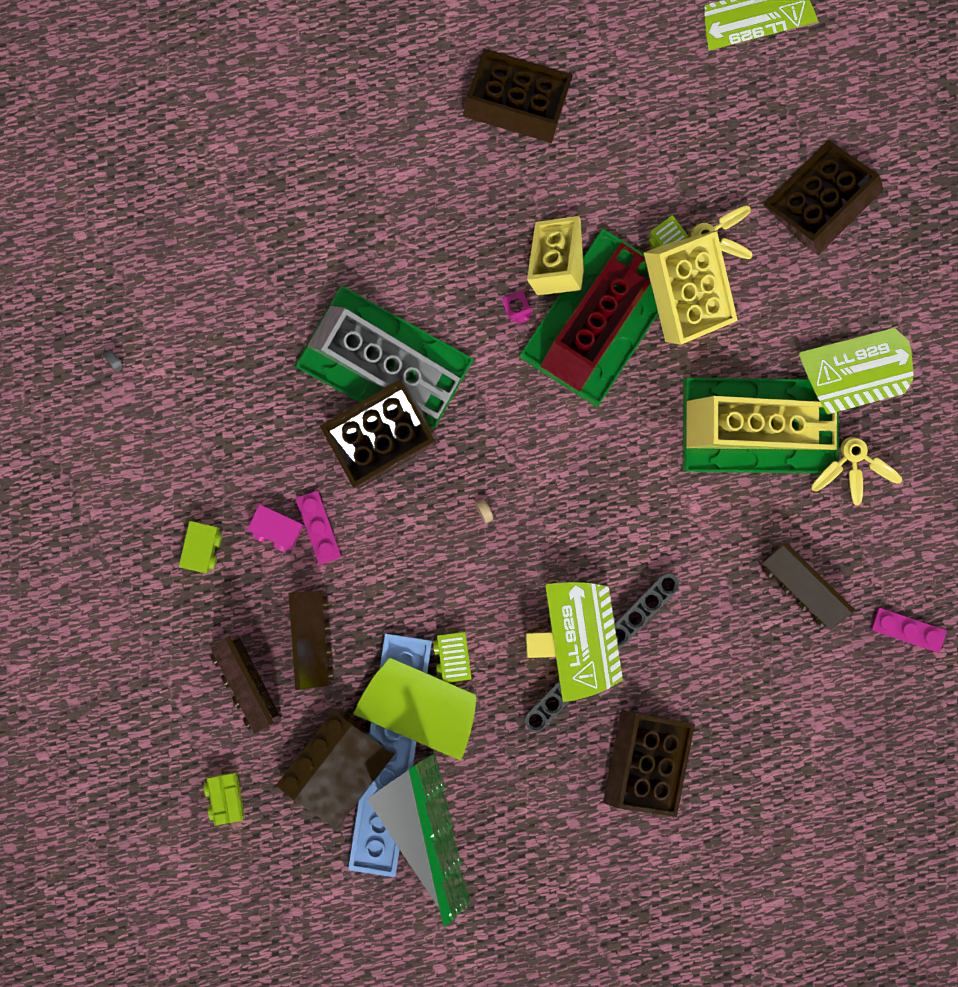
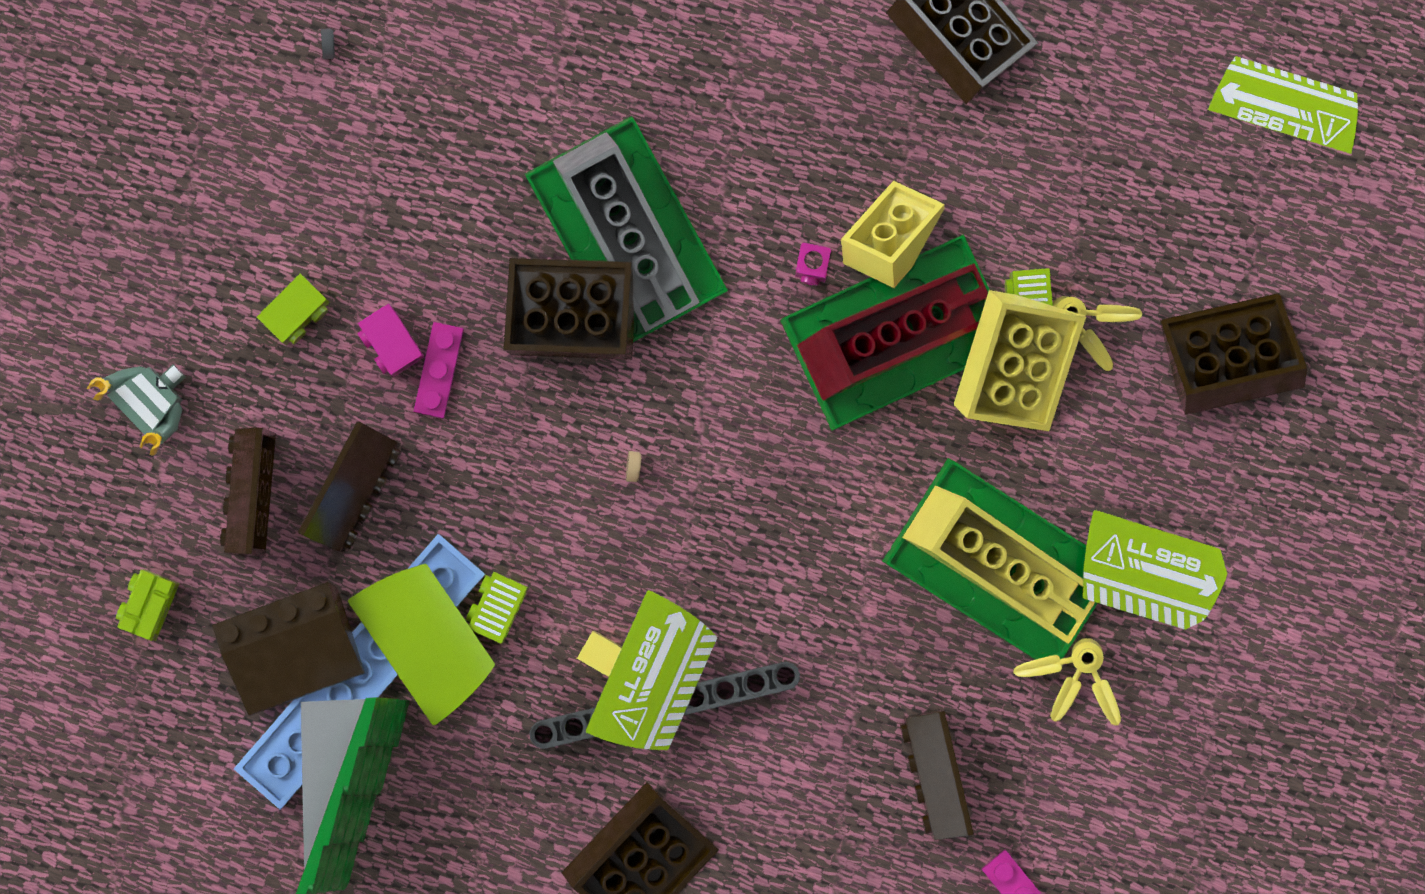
camera: 25 degrees right, 0 degrees up
(140, 666) = (145, 400): none -> torso

